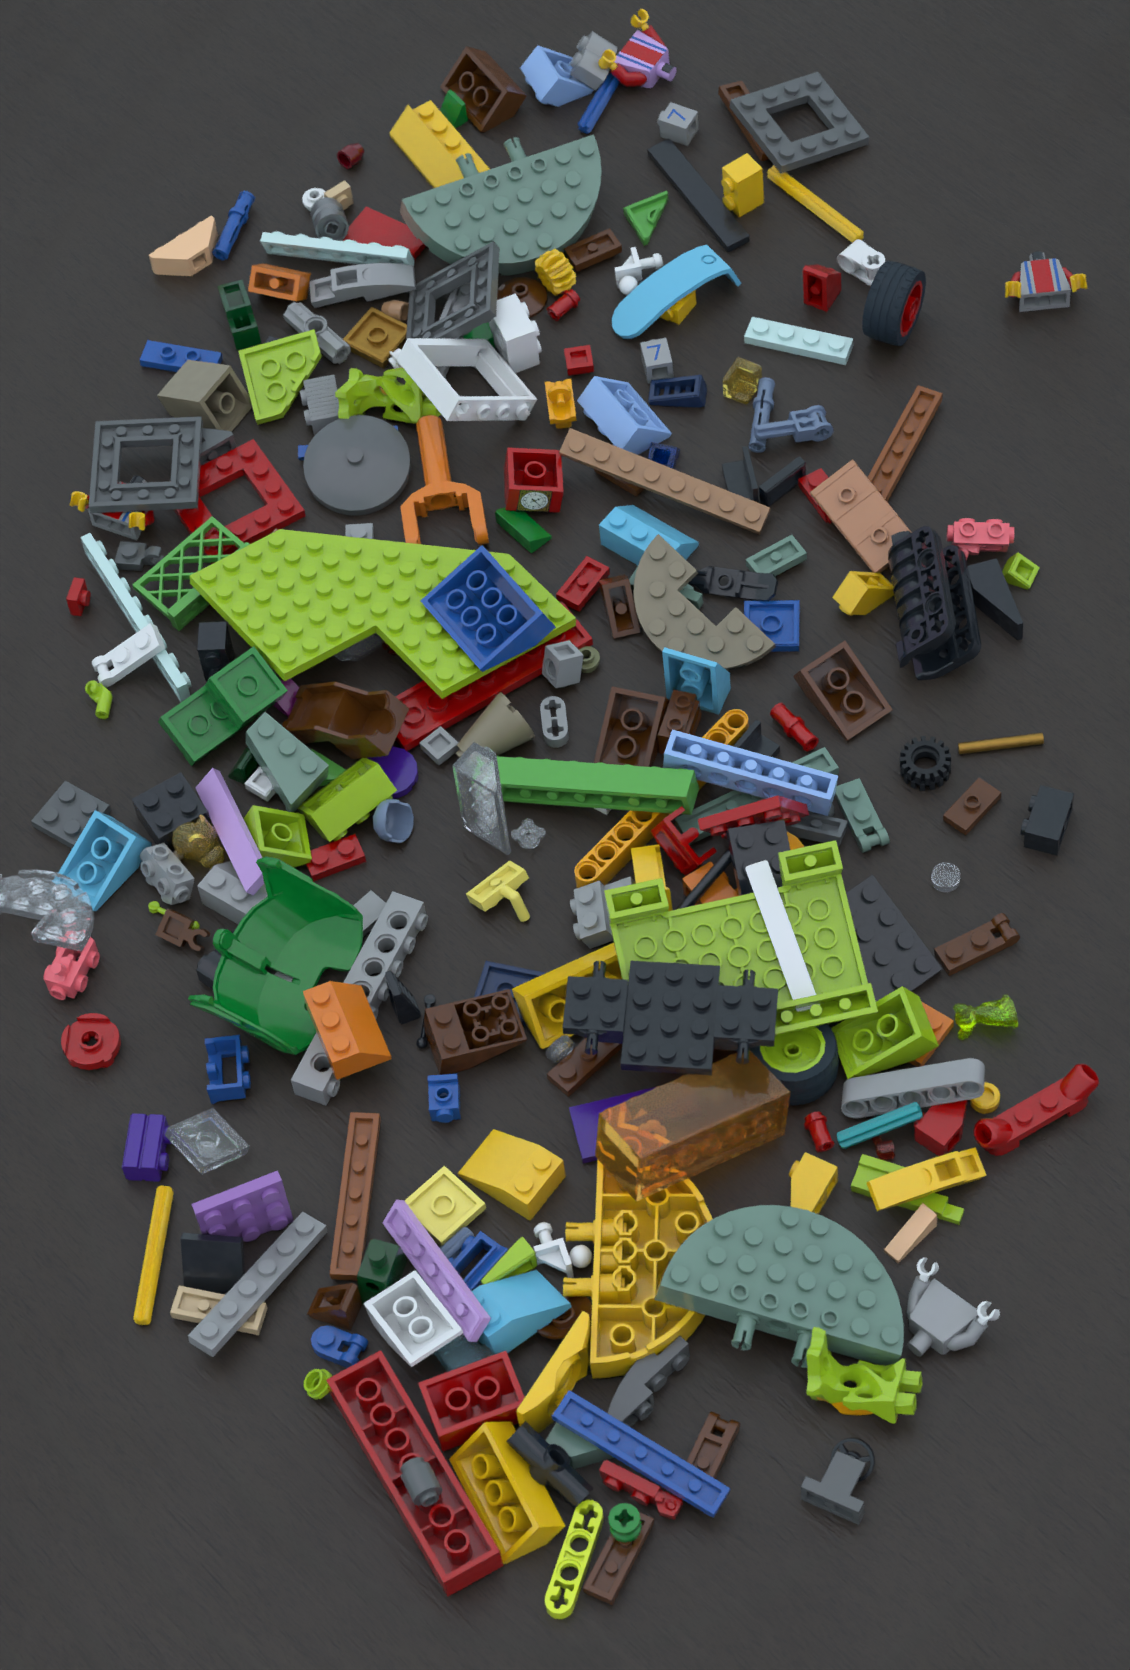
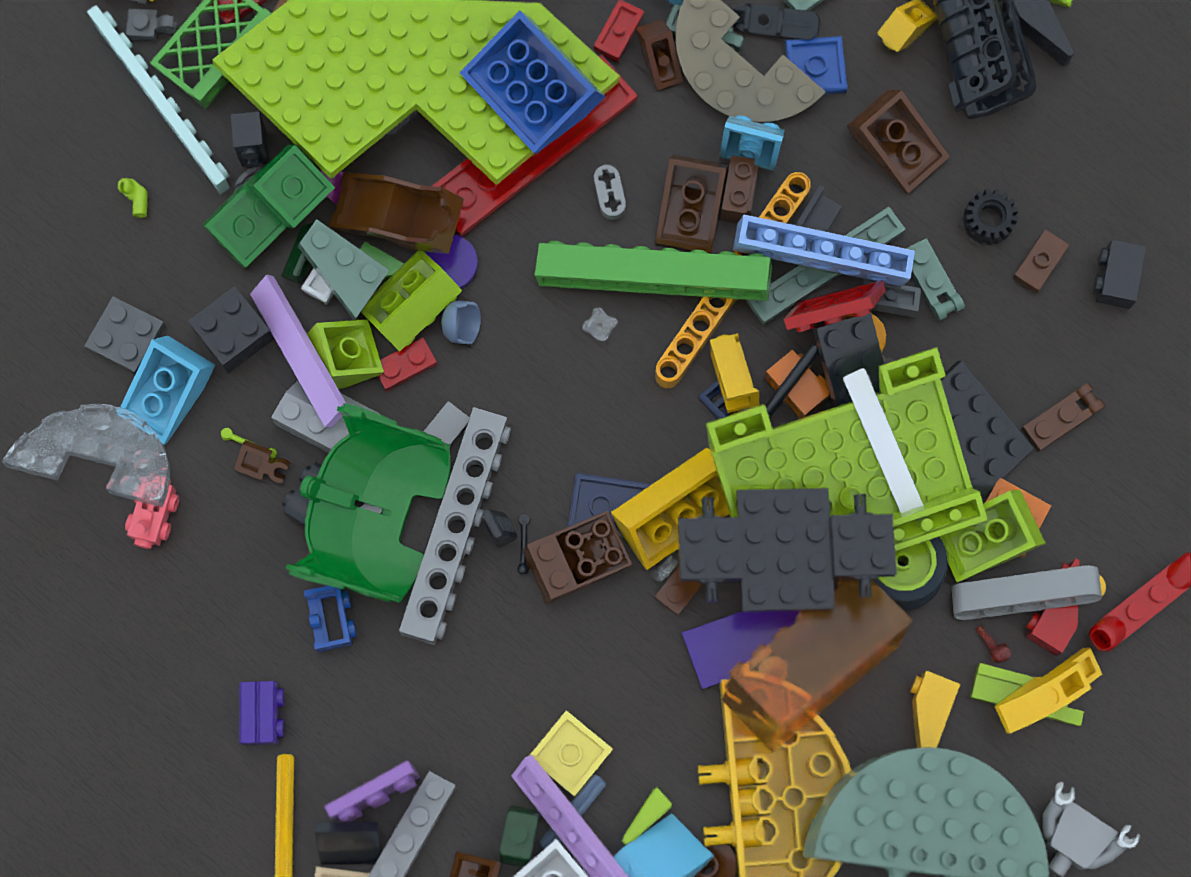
camera: 15 degrees left, 20 degrees up
(78, 597) = (94, 79): red plate -> none
(95, 1056) = (172, 584): red plate -> none
(128, 655) = (159, 147): white plate -> none
(166, 873) = (234, 397): light grey brick -> none
(198, 842) = (265, 364): clear yellow piece -> none
(207, 1140) = (321, 702): clear plate -> none
(346, 1027) = (450, 571): orange slope -> none
(355, 1195) = (480, 749): dark orange plate -> none
(439, 745) = (496, 229): light grey plate -> none
(444, 1097) = (552, 621): blue brick -> none
(470, 1249) = (623, 822): blue window -> none
(482, 796) = (557, 300): clear slope -> none
(498, 728) = (551, 214): dark tan cone -> none
(499, 885) = (580, 388): light yellow plate -> none
(514, 1172) = (633, 708): yellow slope -> none
(555, 1253) = (692, 799): white piece -> none
(562, 664) = (612, 129): light grey brick -> none
(592, 662) = (633, 125): olive plate -> none
(592, 913) = (688, 409): light grey plate -> none
(678, 845) = (759, 335): red window -> none
(794, 727) = (854, 183): red pin -> none
(816, 1124) = (933, 639): red pin -> none
(879, 1125) = (994, 631): teal axle -> none
(912, 1233) = (1036, 744): light nougat piece -> none
(945, 877) = (1023, 342): clear tile -> none
(992, 1013) = (1090, 497): clear neon green animal -> none
(1000, 743) = (1061, 187): pearl gold bar -> none

